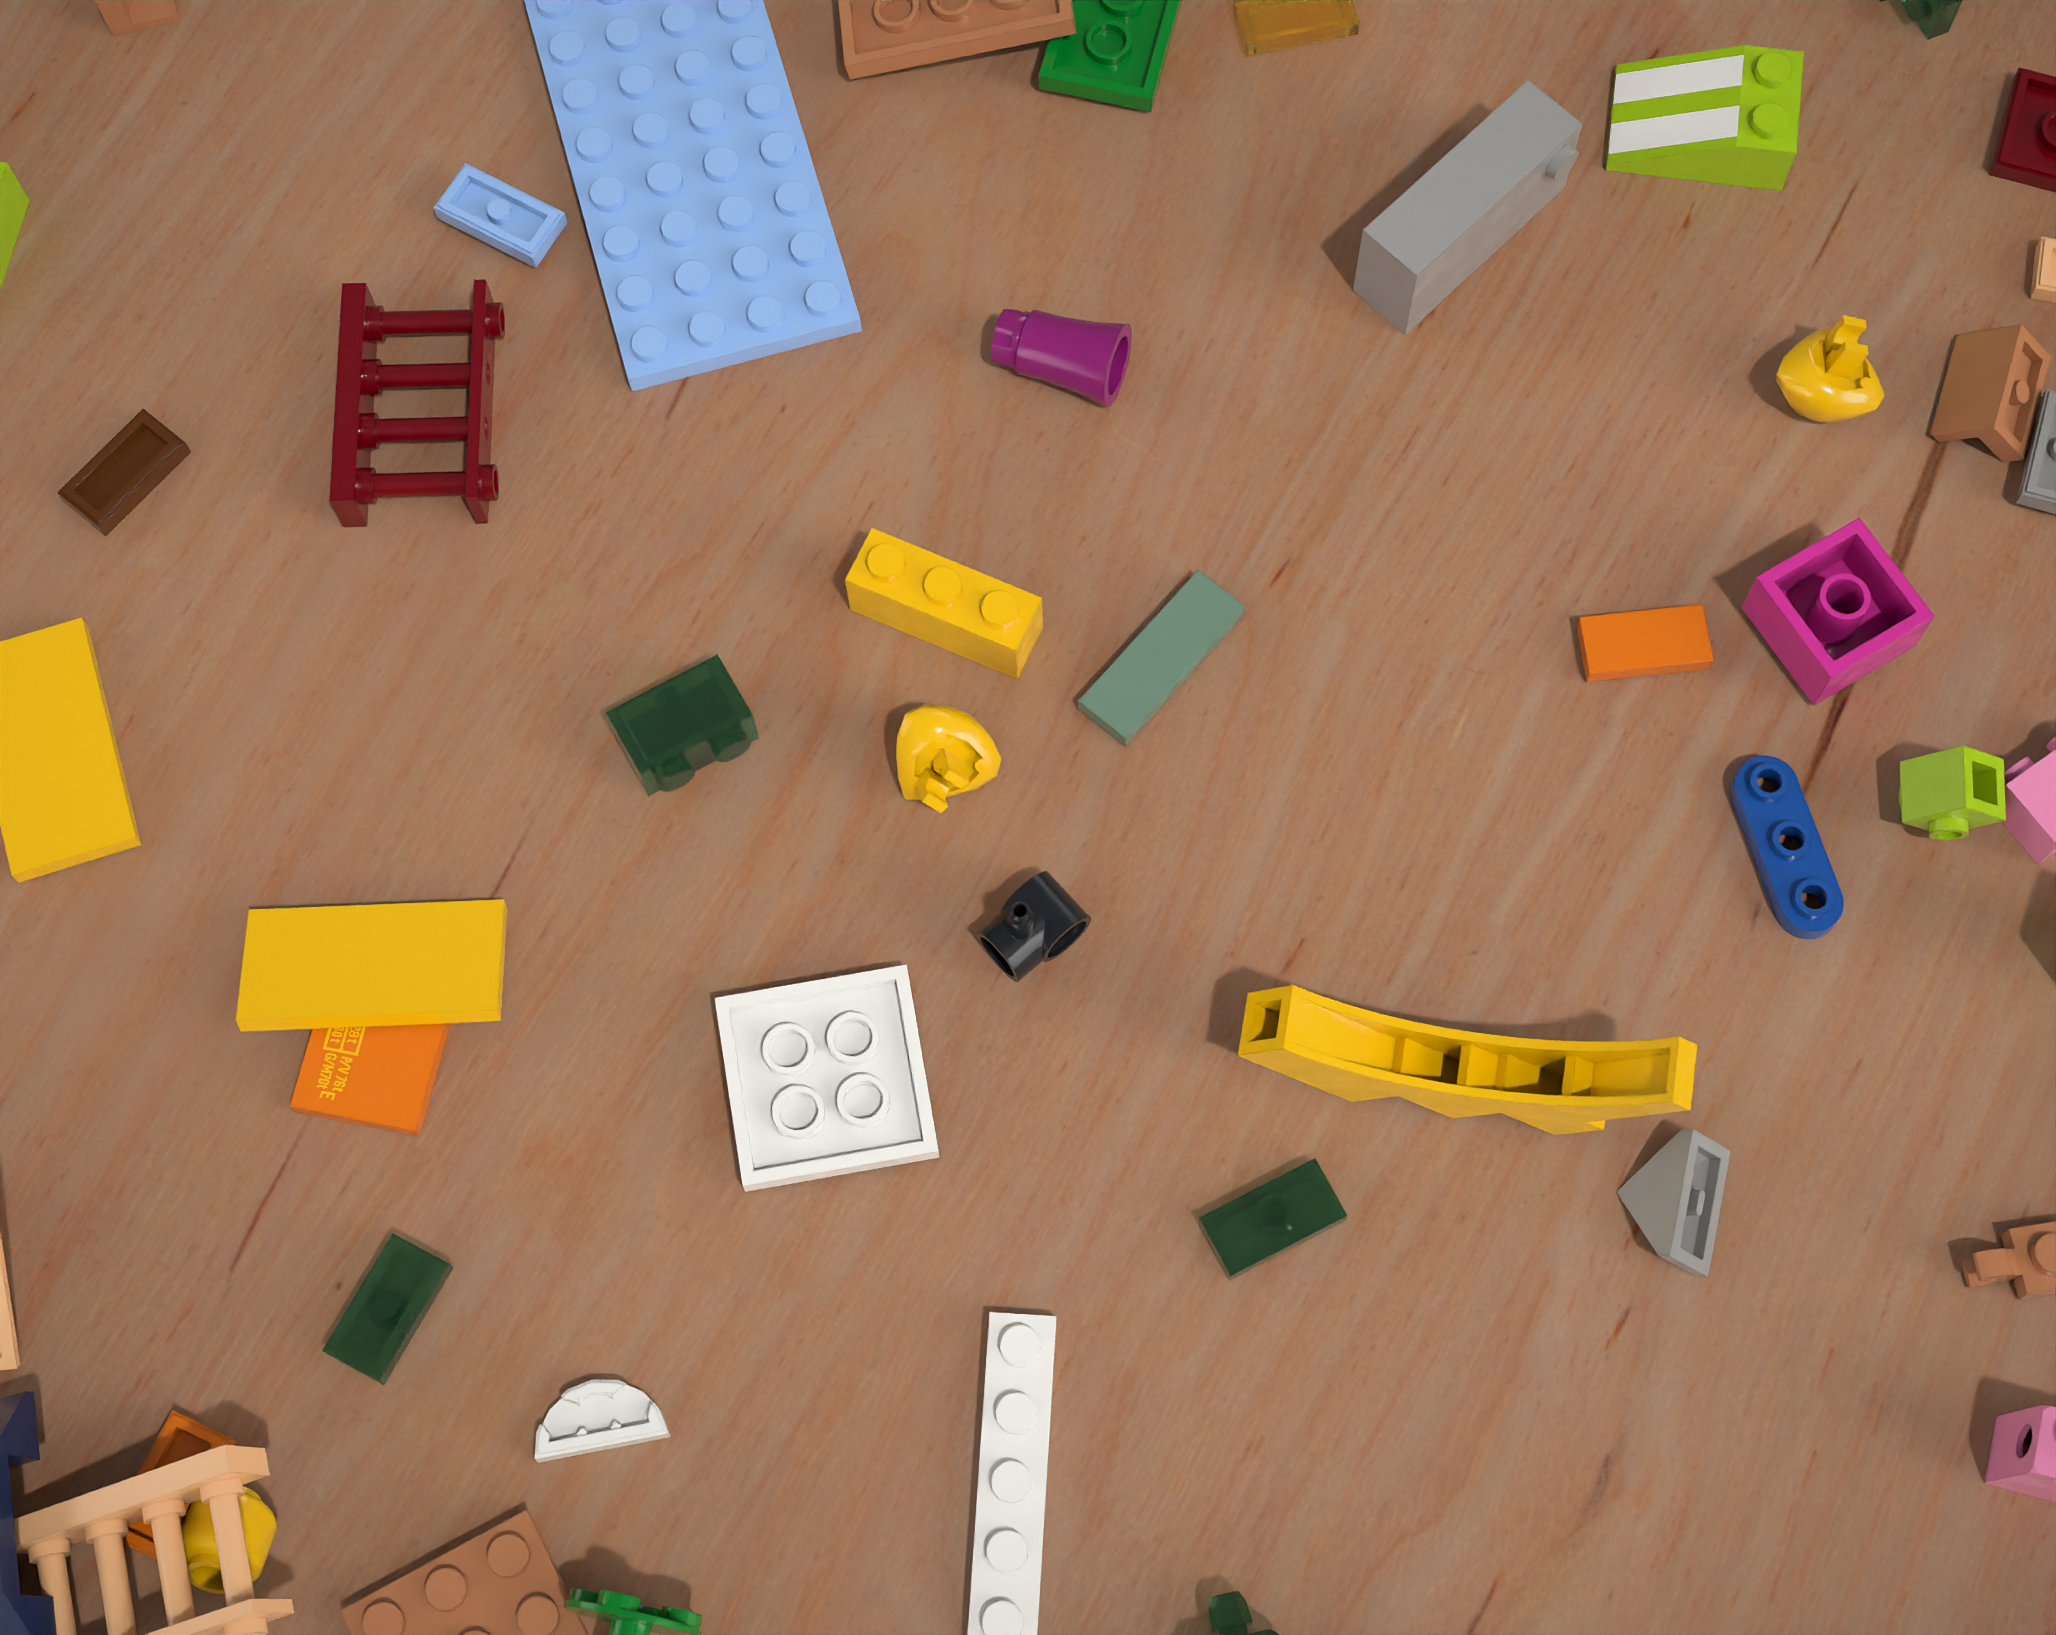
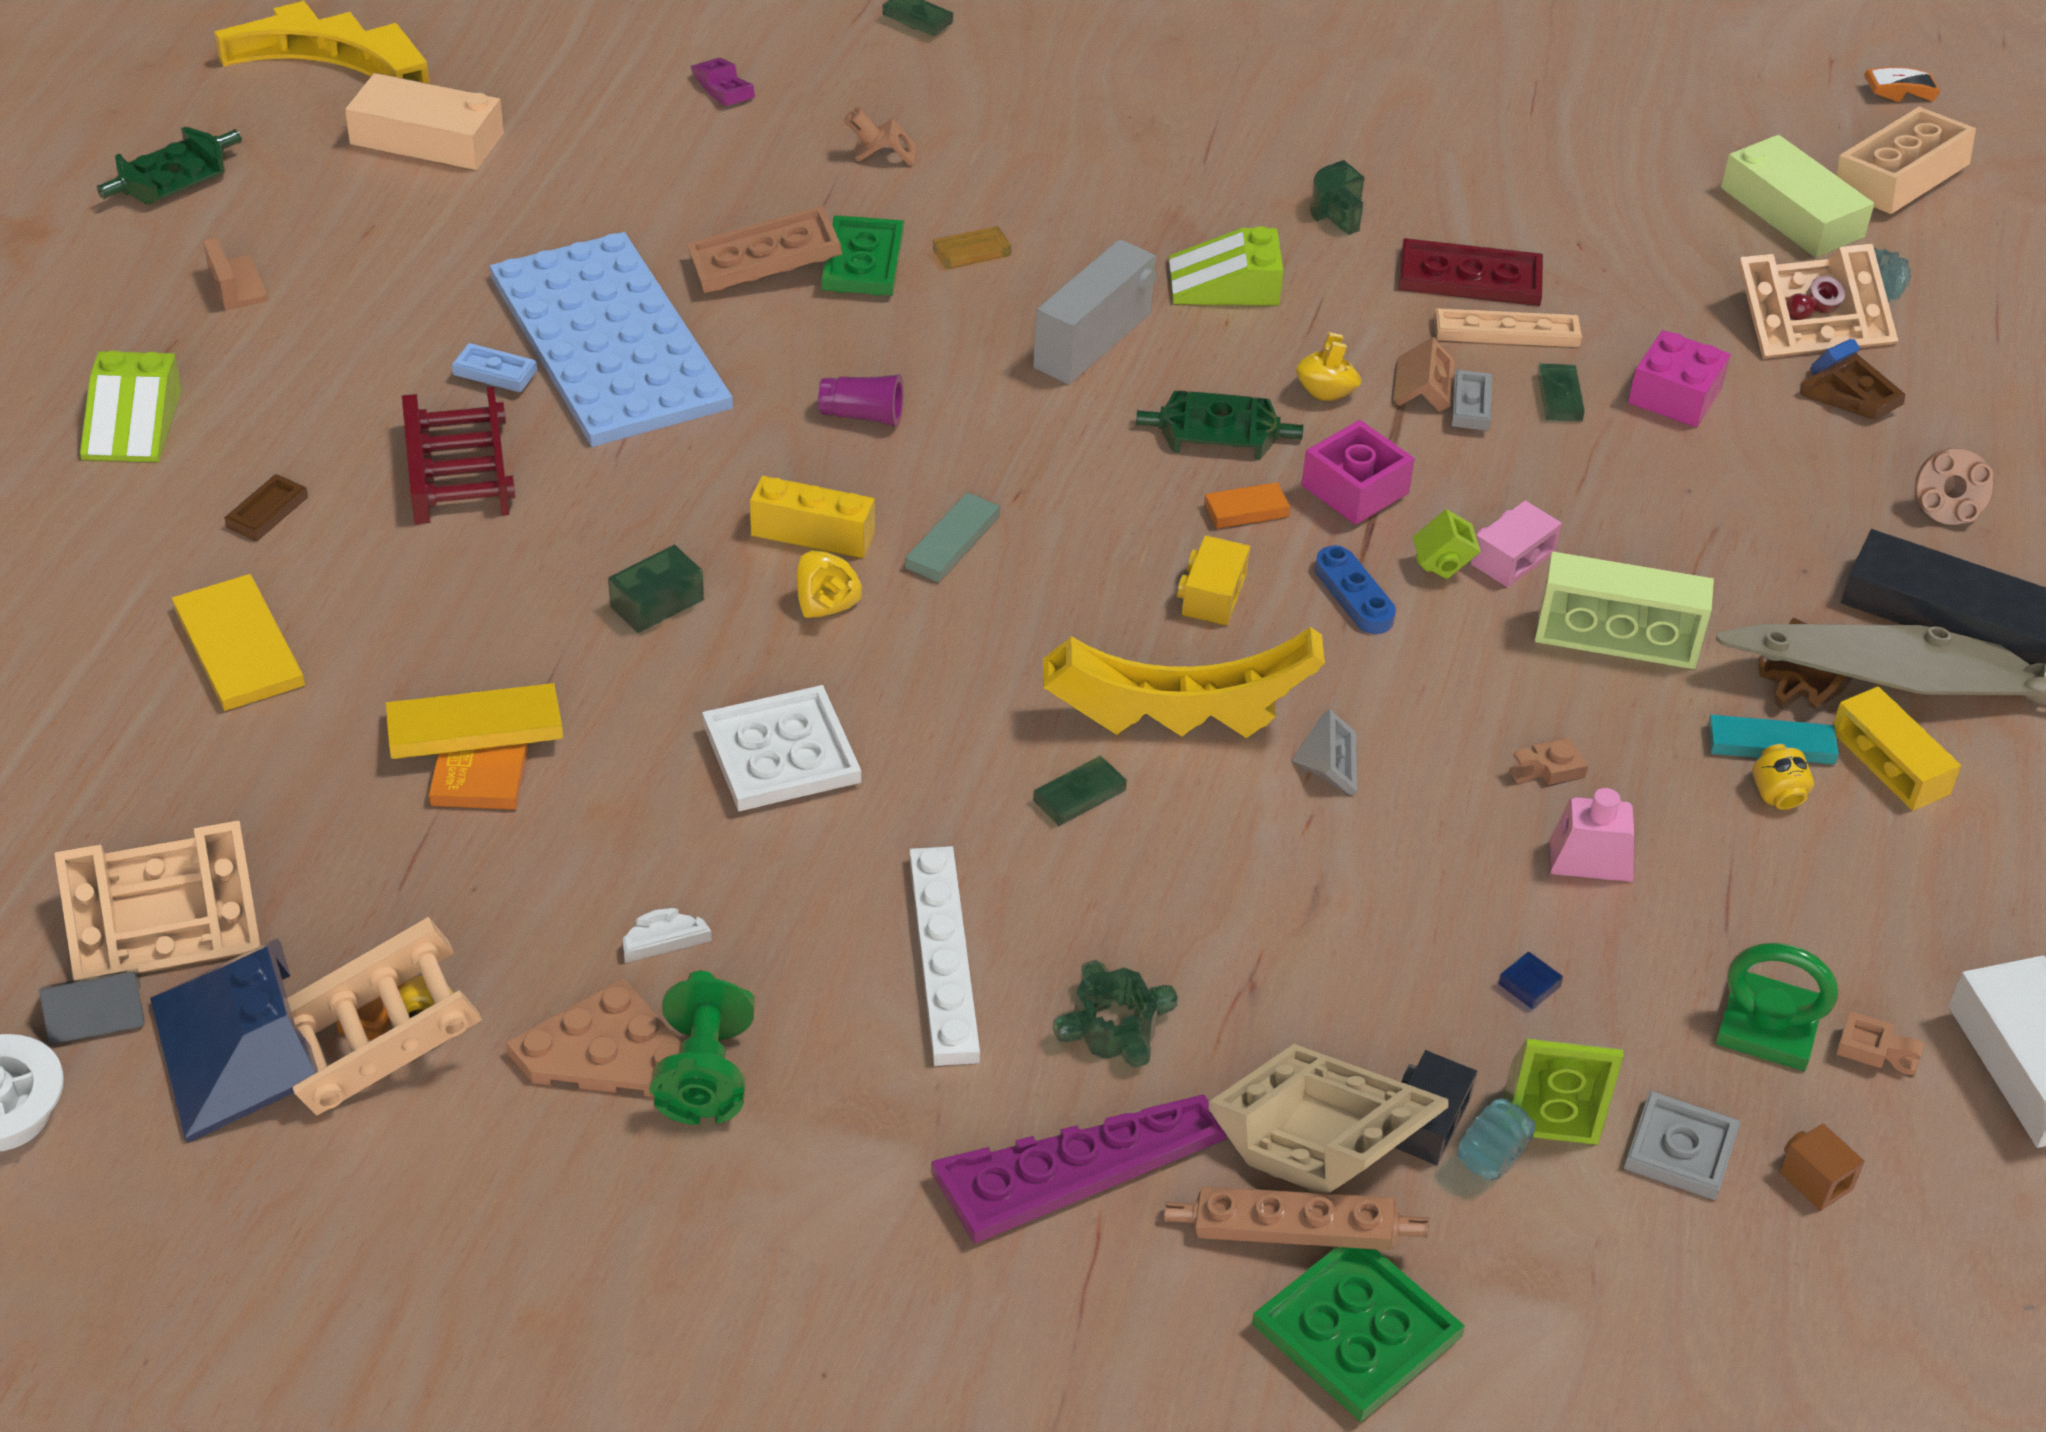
camera: 15 degrees left, 25 degrees down
(387, 1309) = (512, 889): clear green plate -> none
(1033, 926) = (898, 662): black piece -> none
(1561, 812) = (1214, 580): none -> yellow brick
(1584, 461) = (1247, 423): none -> dark green plate

